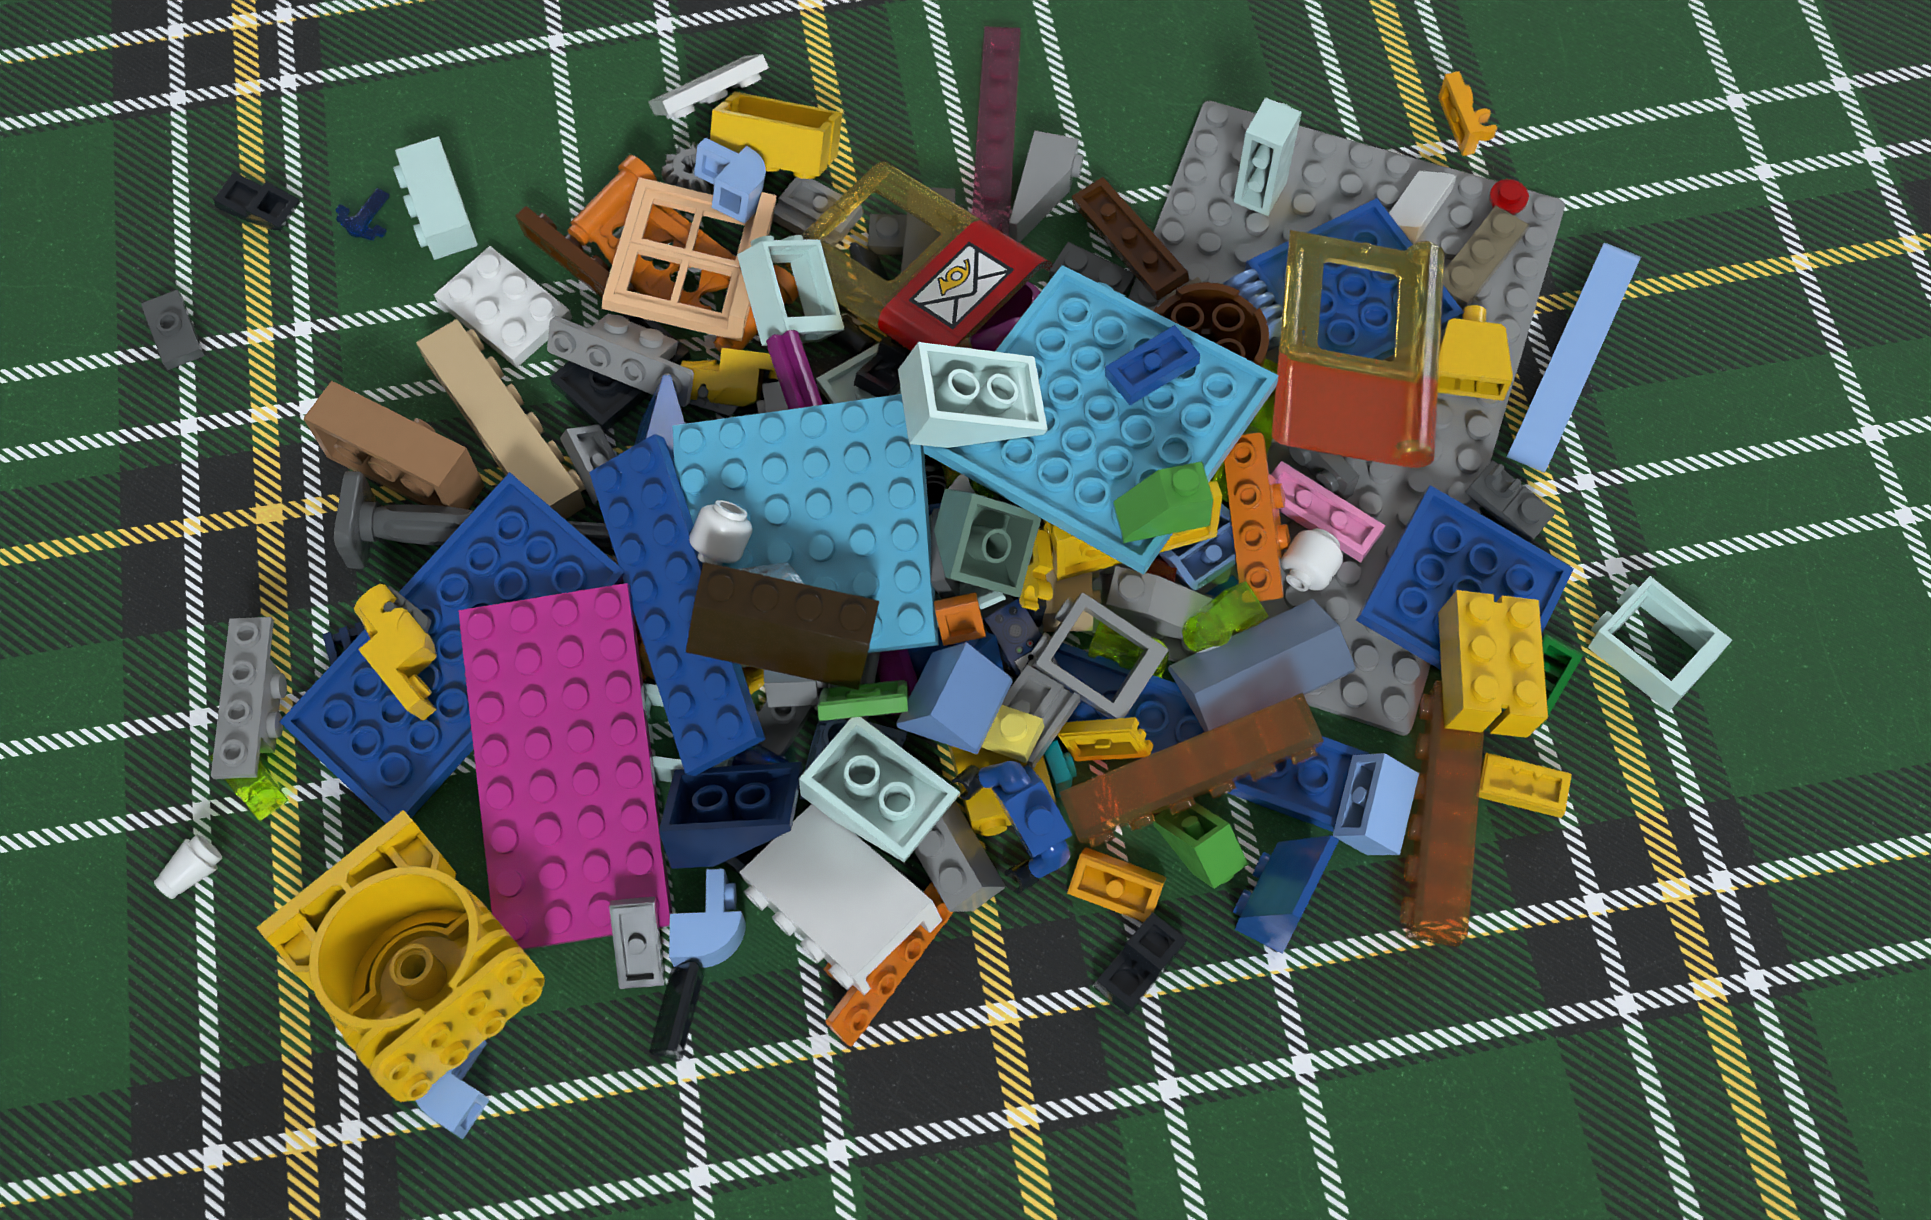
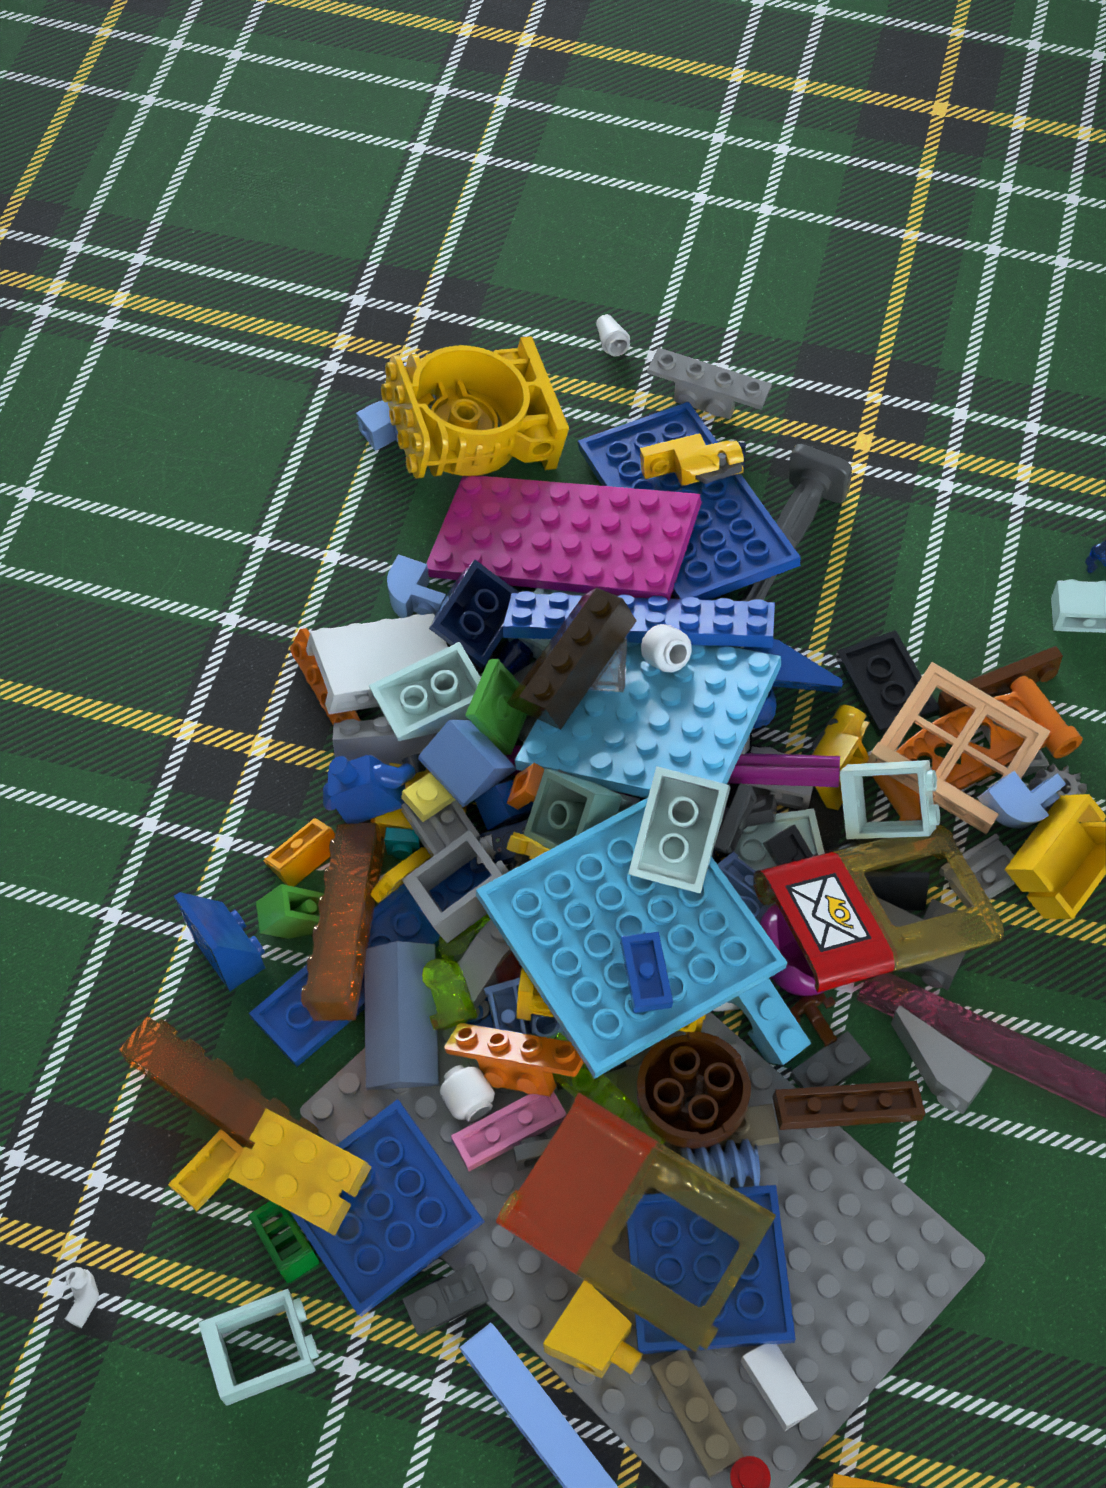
camera: 115 degrees right, 5 degrees down
(172, 329) = (1048, 419): dark grey plate -> none
(259, 793) = (644, 385): clear neon green leg -> none
(393, 449) = (865, 510): medium nougat brick -> none
(498, 419) = (869, 589): tan brick -> none
(501, 306) = (983, 627): white plate -> none
(587, 450) = (809, 636): dark grey plate -> none
(621, 352) = (890, 682): light grey bracket -> none
(637, 942) = (422, 543): plate -> none
(677, 1011) = (363, 558): black slope -> none
(1140, 963) = (238, 838): black slope -> none
(1165, 503) = (511, 920): bright green slope -> none
(1266, 156) = (865, 1235): light aqua brick -> none
(1376, 804) = (250, 1041): light blue brick -> none
(1714, 839) = (85, 1295): none -> white arm

